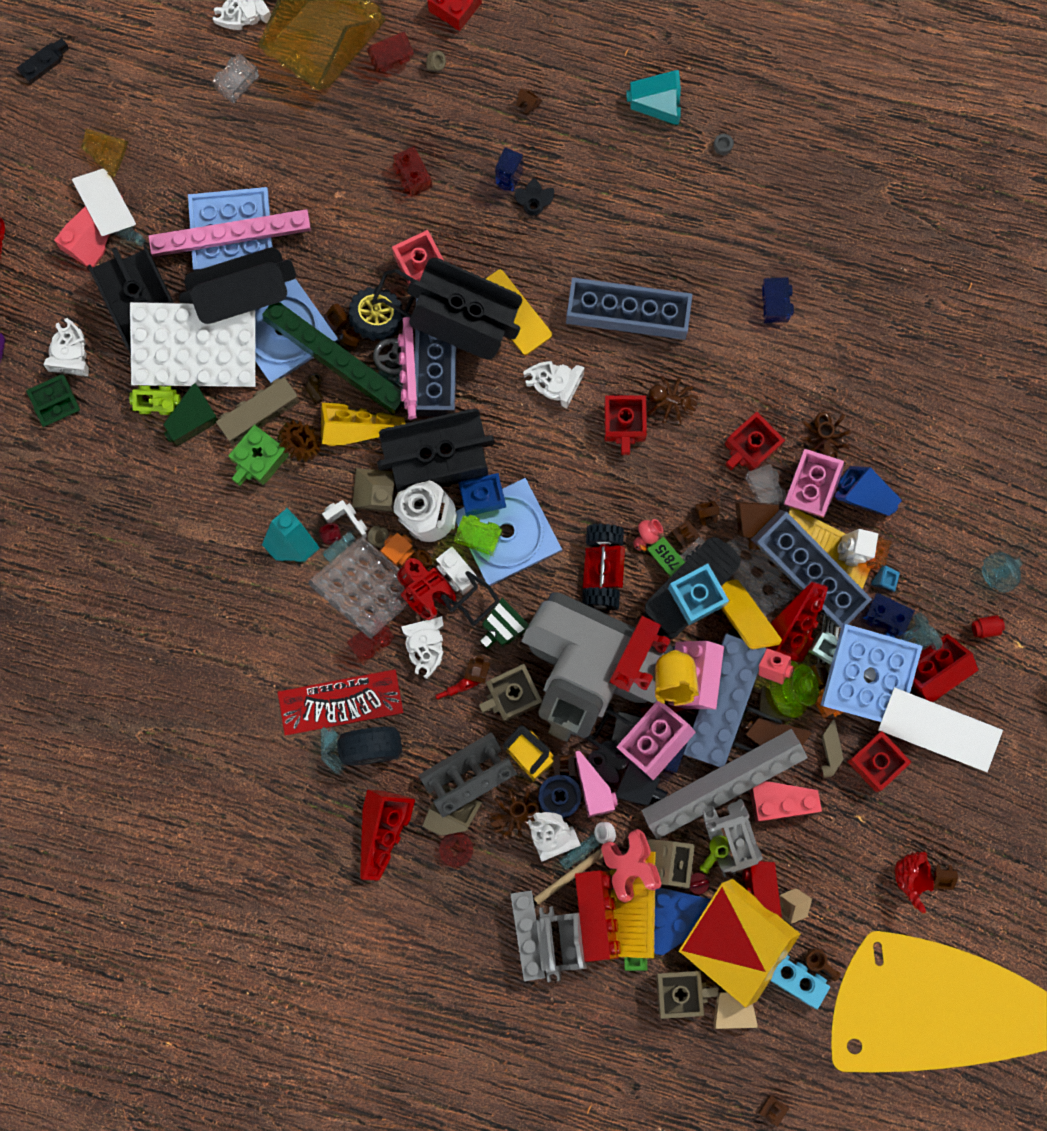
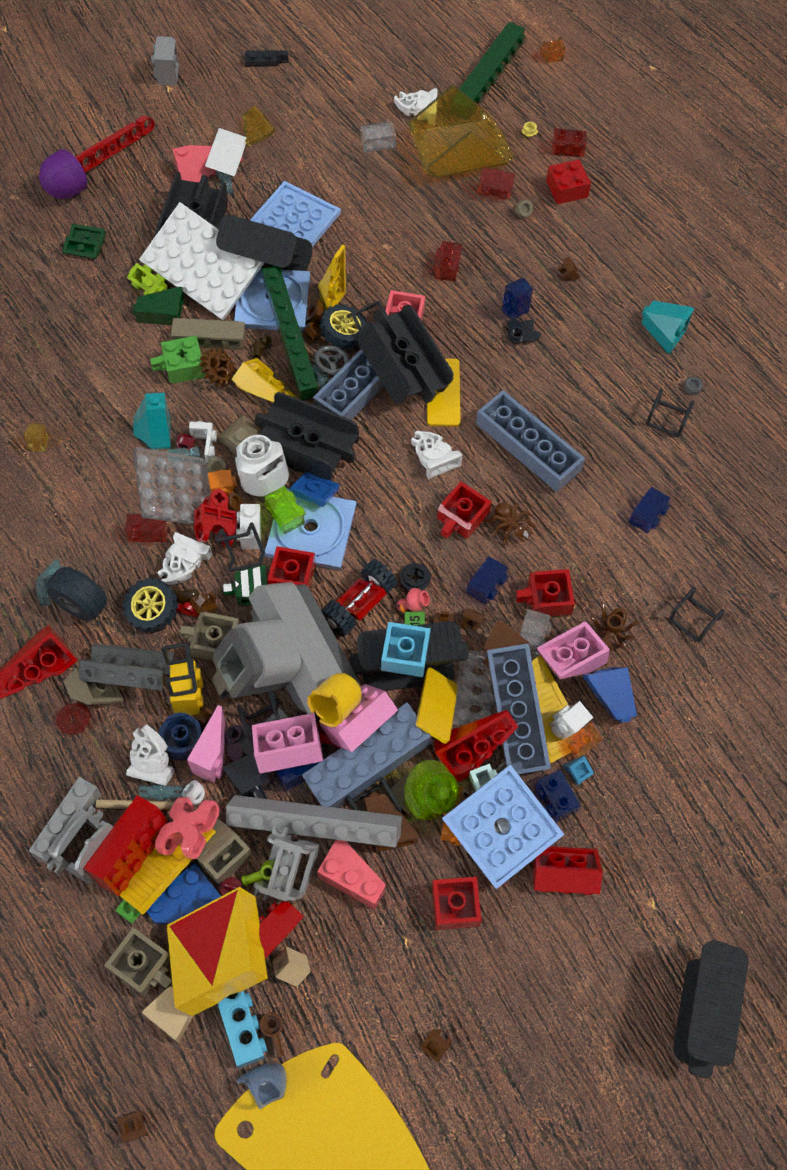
camera: 35 degrees right, 15 degrees down
(67, 351) = (120, 219): white piece -> none
(195, 630) = (36, 437): none -> clear yellow brick
(229, 233) = (290, 217): bright pink plate -> none
(330, 278) = (333, 284): none -> yellow wedge
(340, 702) = (90, 556): red sticker -> none
(407, 374) = (327, 373): bright pink plate -> none
(429, 726) = (134, 597): none -> black wheel
(453, 675) = (185, 595): none -> dark brown arm
(519, 812) = (138, 721): reddish brown animal -> none
(527, 585) = (292, 566): none -> red brick
(633, 502) = (408, 573): none -> black gear
(635, 654) = (320, 658): red brick -> none
(693, 468) = (487, 580): none -> clear blue brick
(705, 180) = (657, 400): none -> black piece
(775, 666) = (426, 756): coral brick -> none
(832, 750) = (425, 868): dark tan piece -> none
(844, 1002) = (266, 1083): none -> sand blue piece
(867, 357) = (715, 617): none -> black piece
(914, 877) = (410, 1021): red hair -> none
(923, 633) = (574, 829): clear light blue tile -> none
(940, 729) = (529, 918): white sticker -> none
(988, 627) = (635, 867): red brick -> none
(1002, 571) = (681, 830): clear light blue tile -> none

